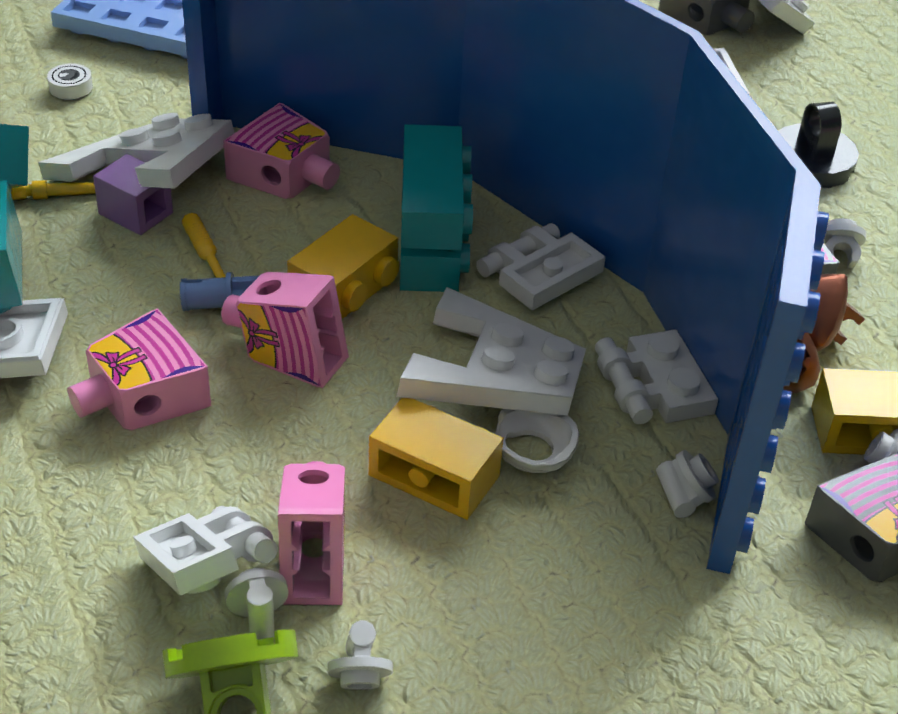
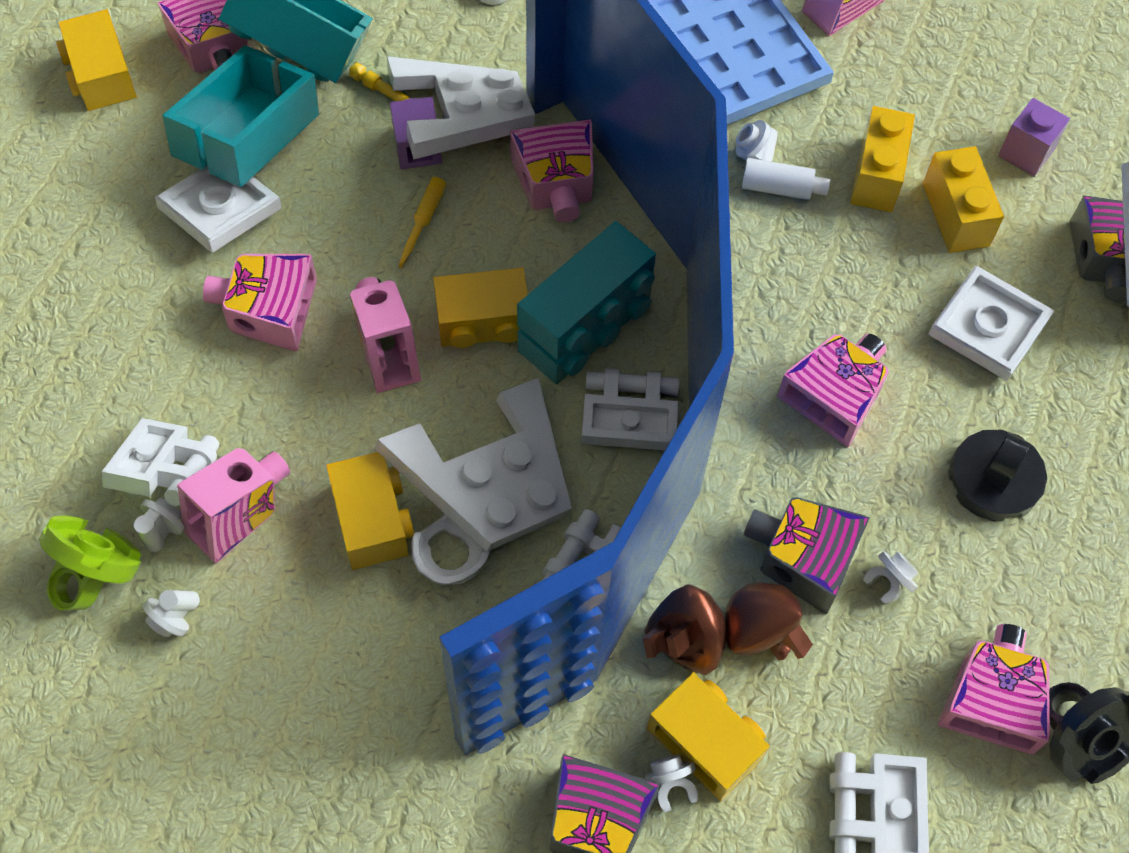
camera: 45 degrees right, 20 degrees up
(211, 292) = (391, 267): medium blue axle -> none

